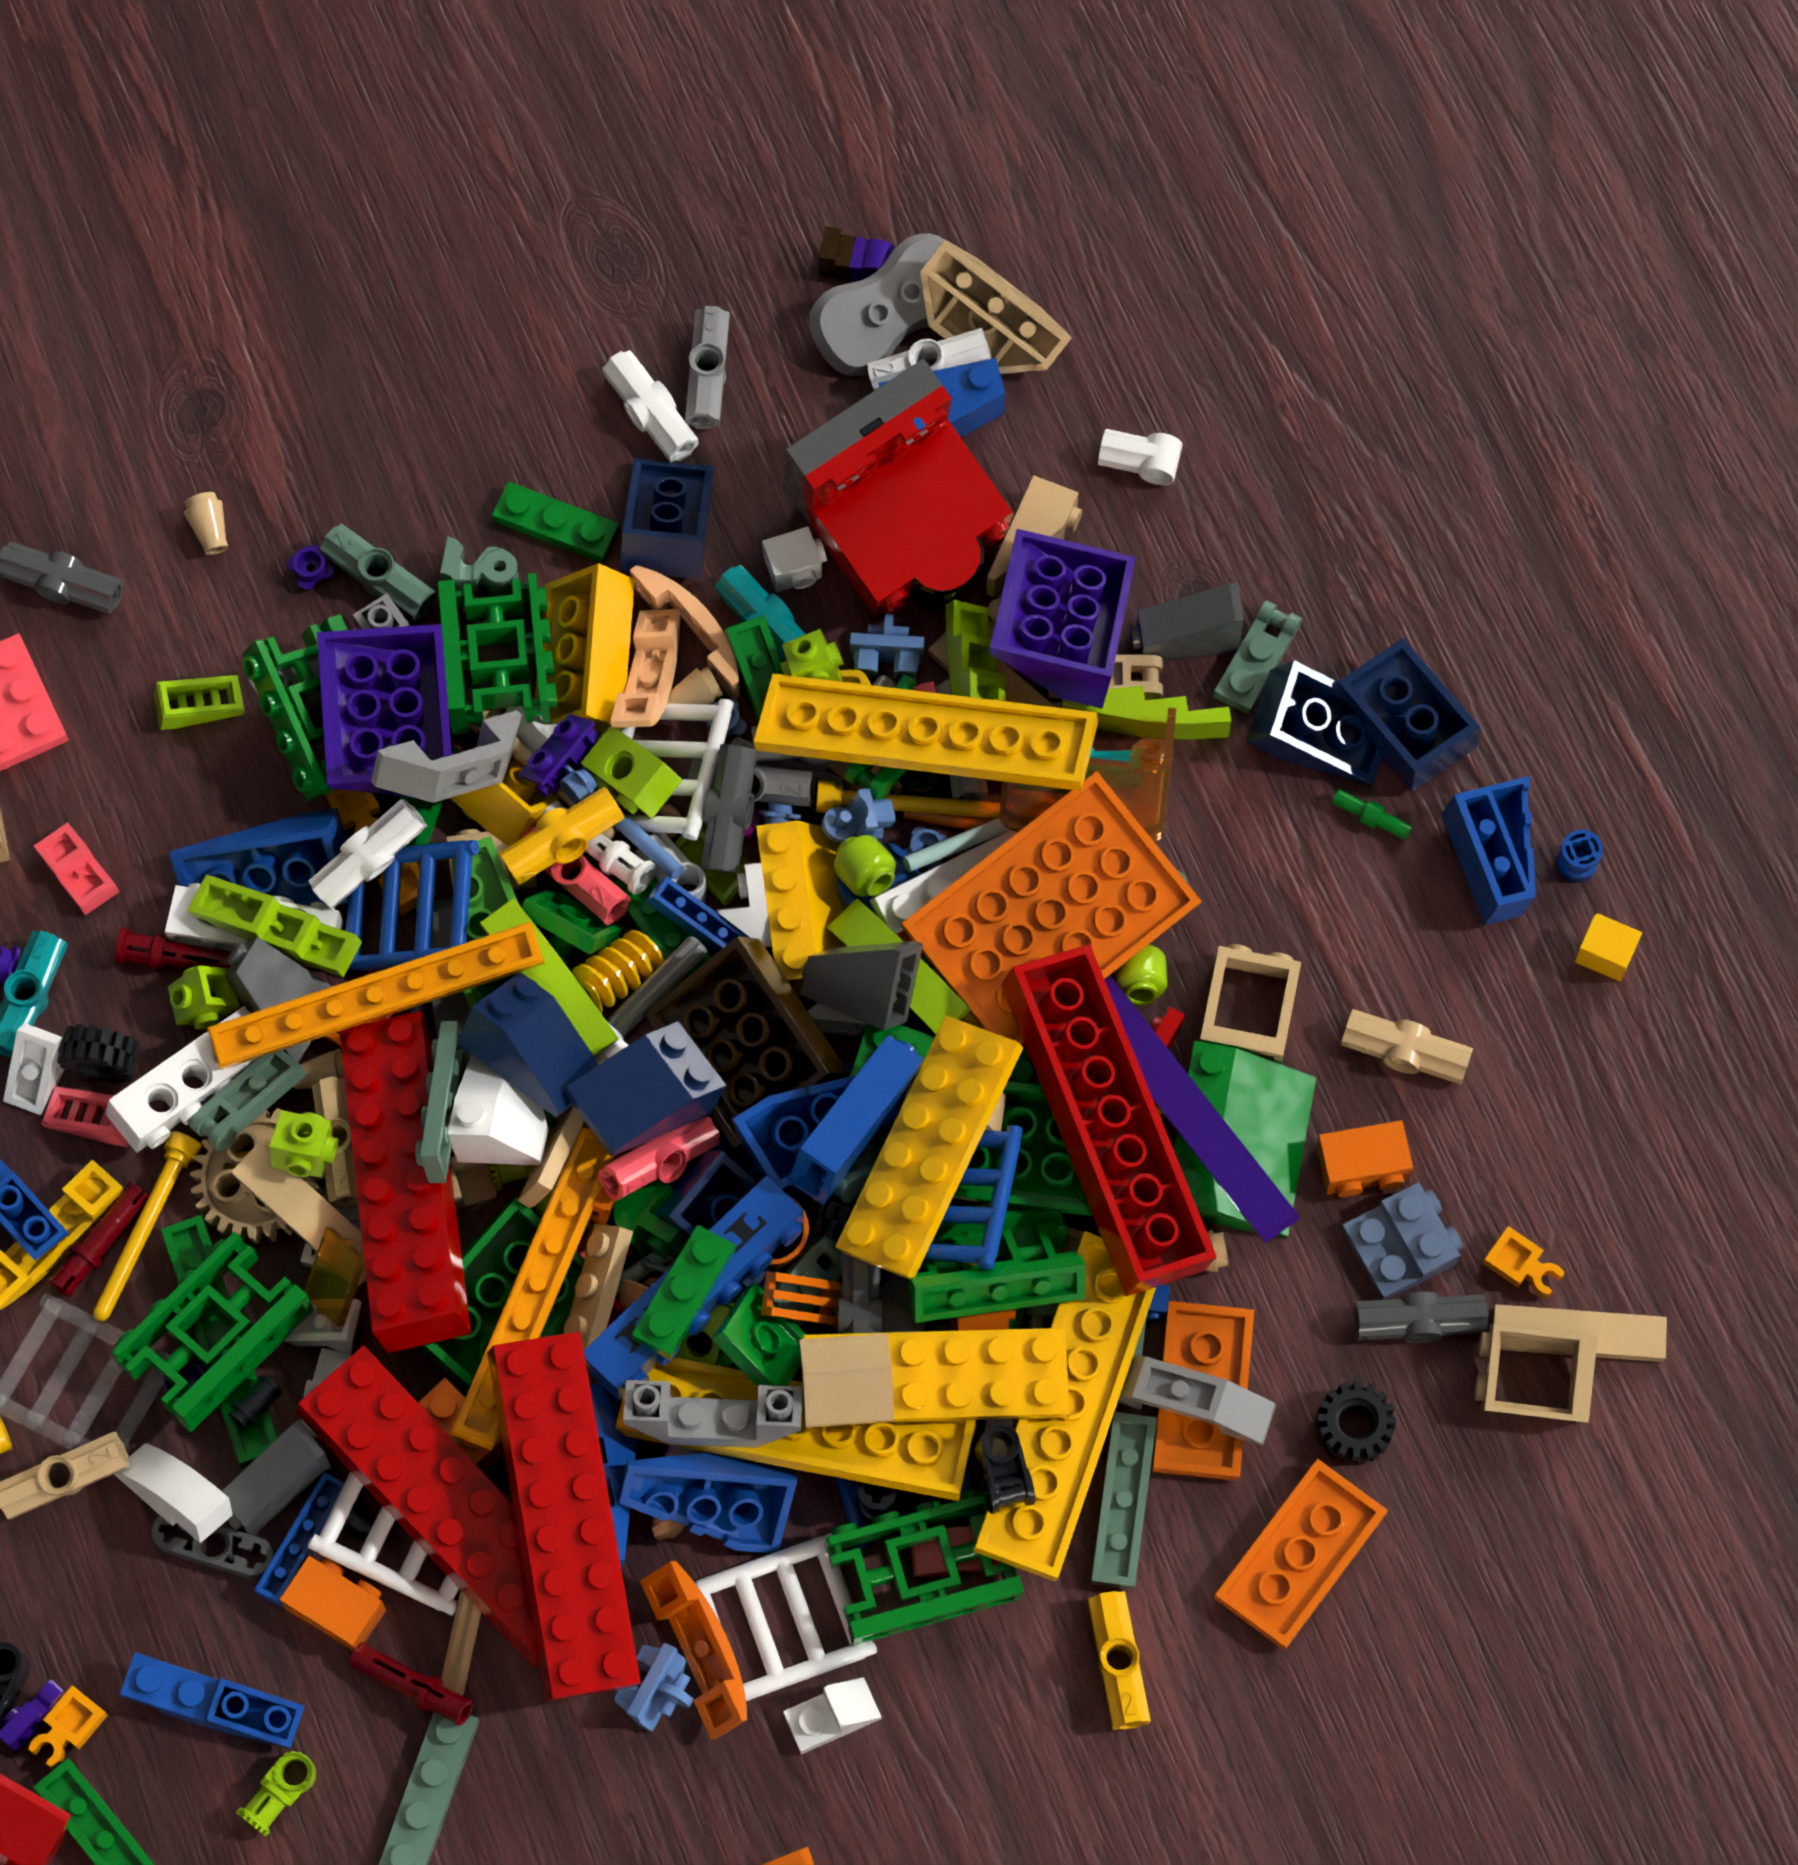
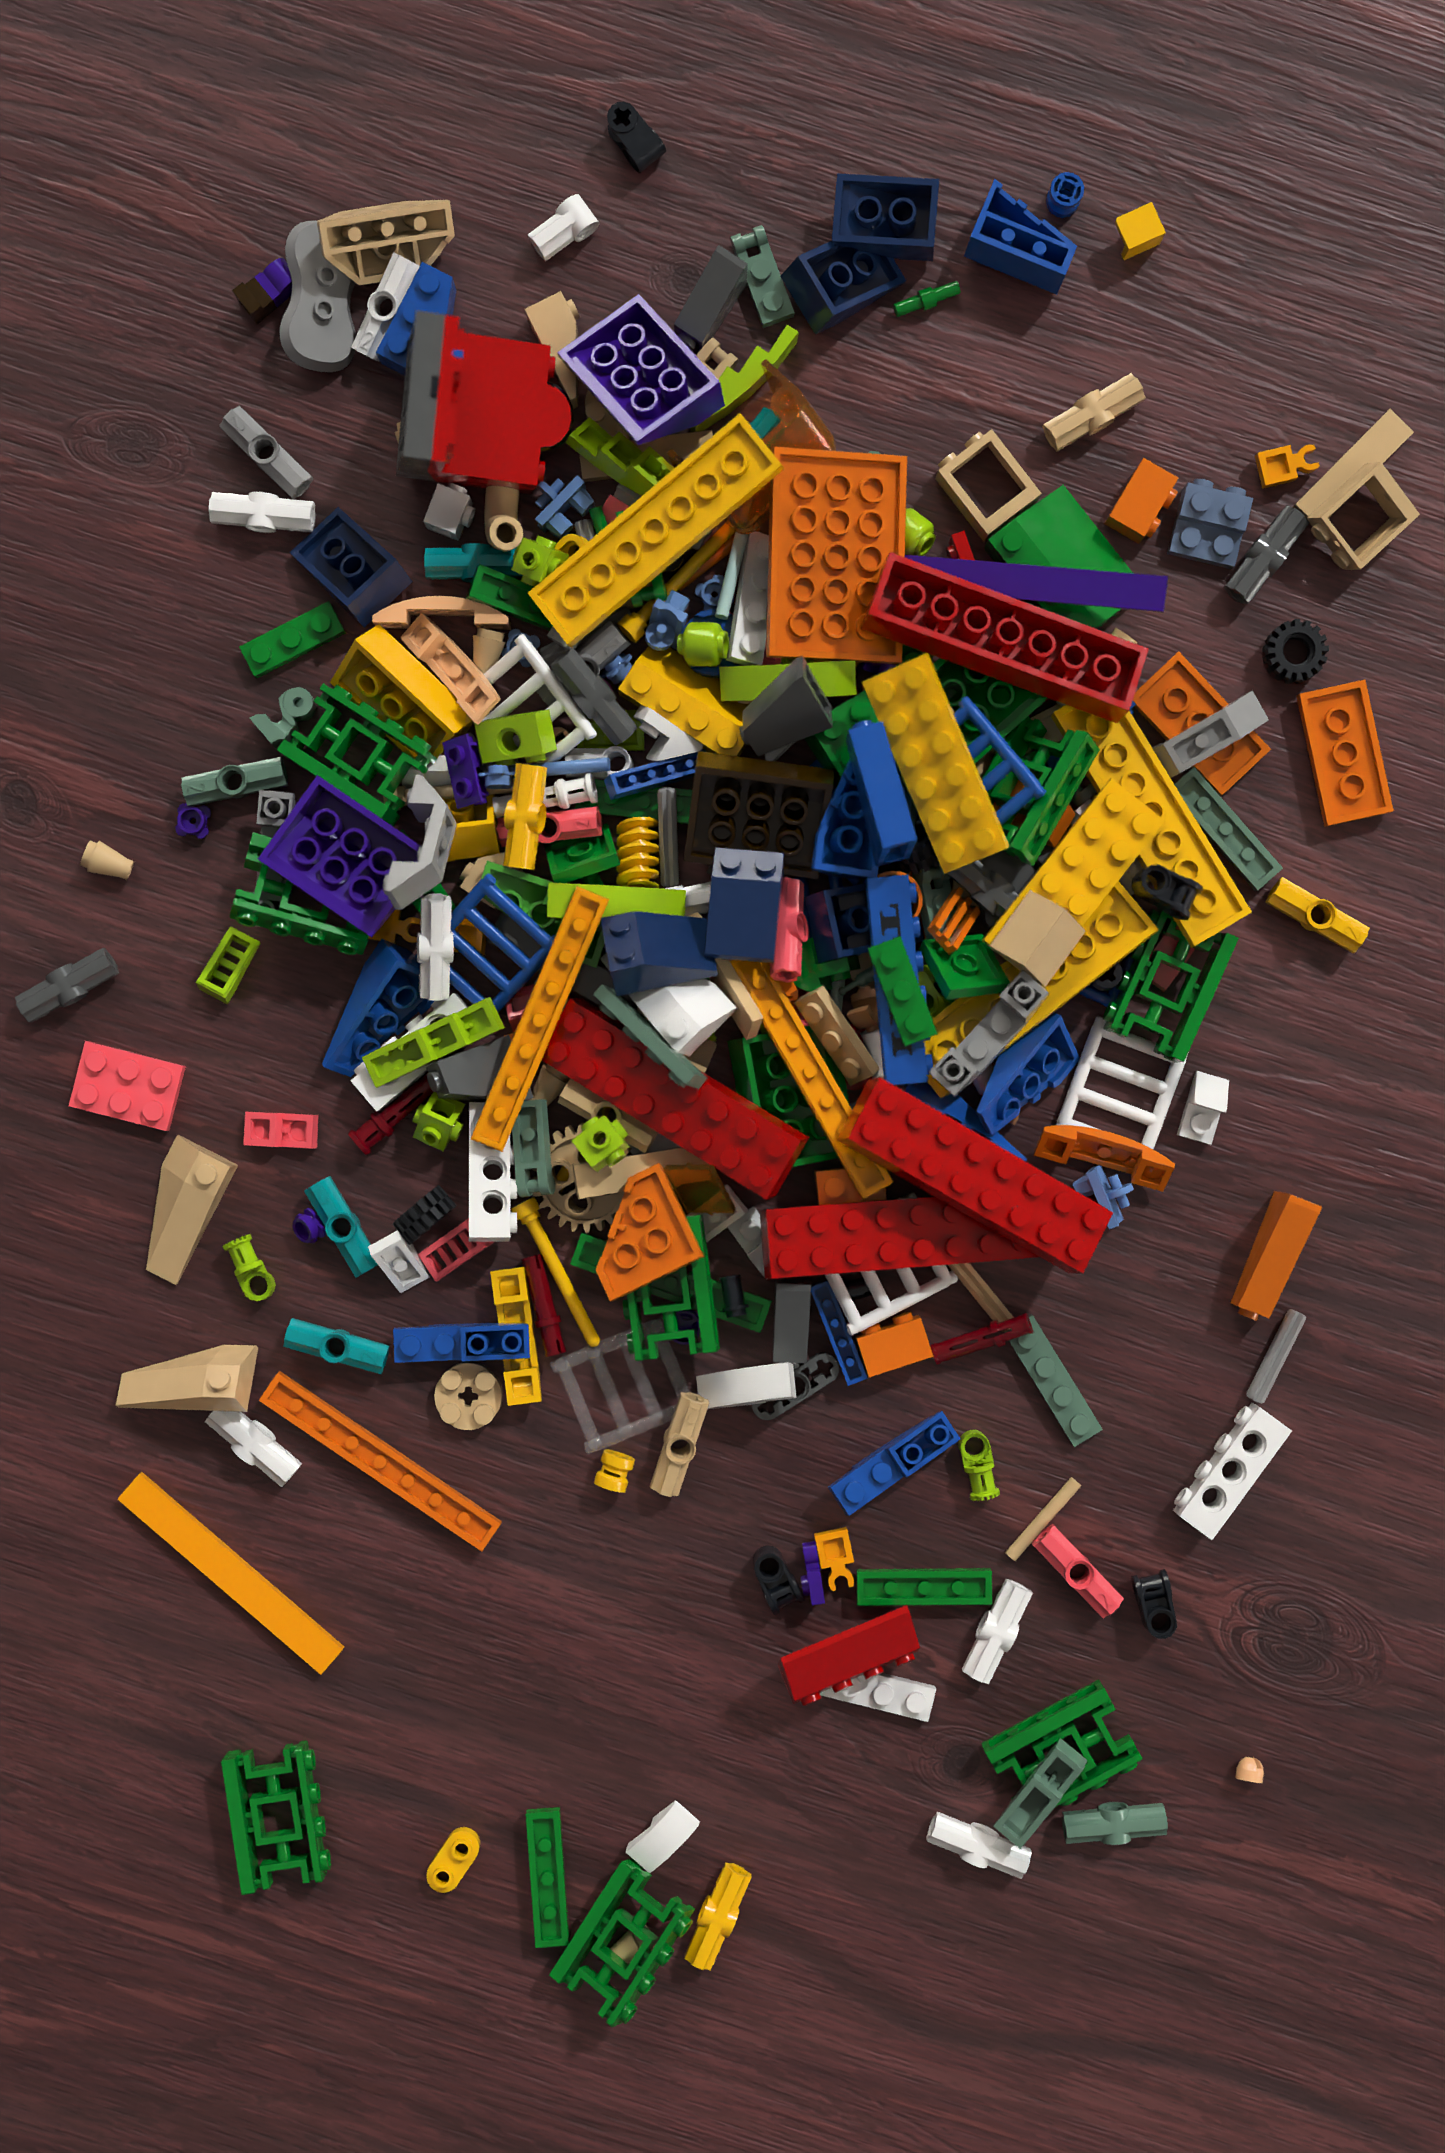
camera: 50 degrees left, 20 degrees up
(245, 1260) = (646, 1236): none -> orange plate
(827, 605) = (501, 518): none -> tan cylinder
(1277, 450) = (637, 140): none -> black piece

